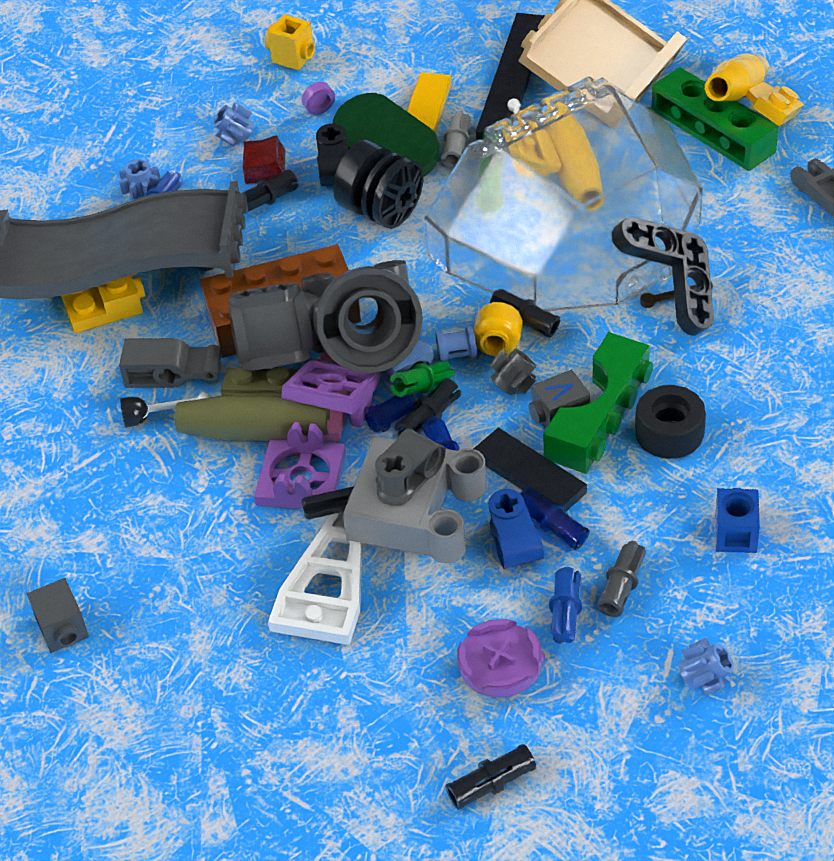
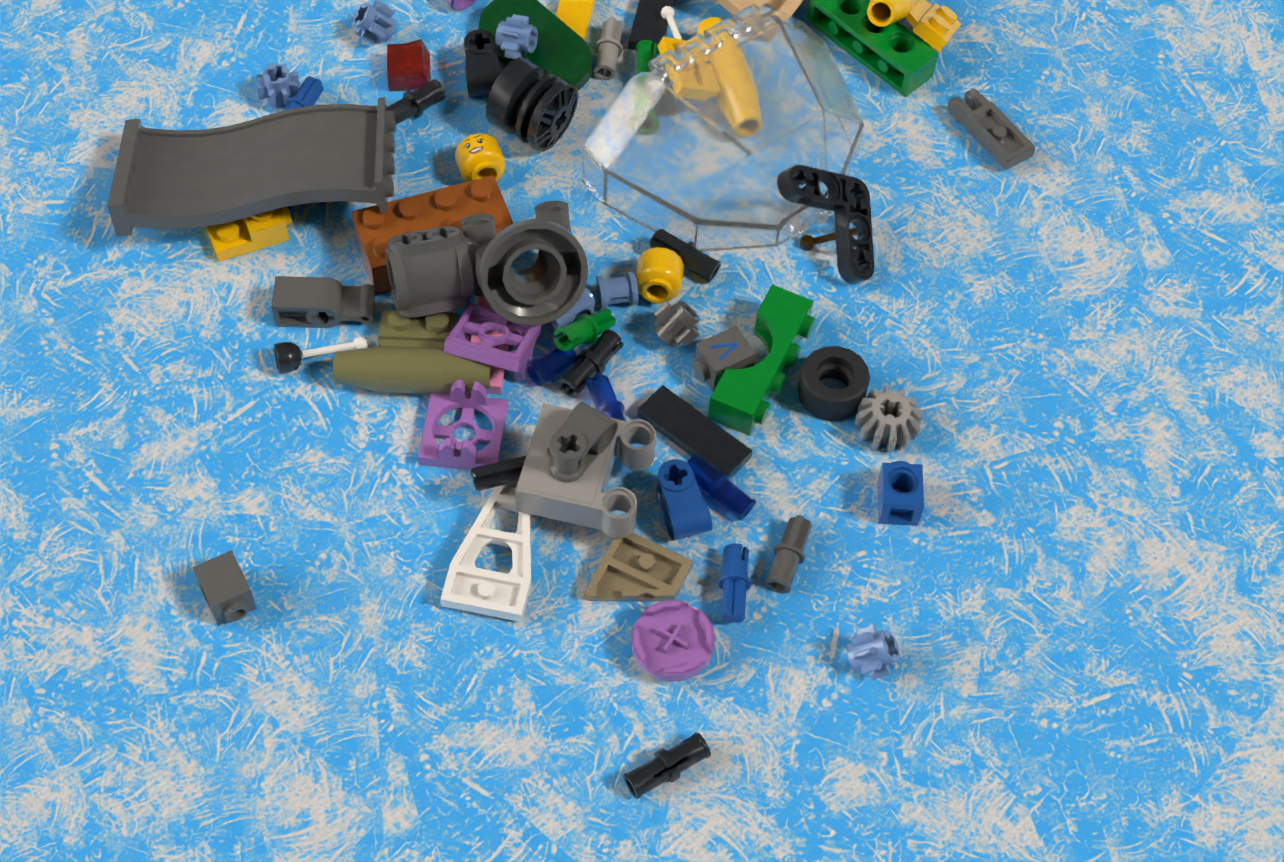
camera: 10 degrees left, 10 degrees up
(327, 229) = (479, 157): none -> yellow head
(366, 125) = (516, 36): none -> medium blue gear
(467, 596) = (638, 572): none -> dark tan wing
(726, 452) = (888, 418): none -> light grey gear

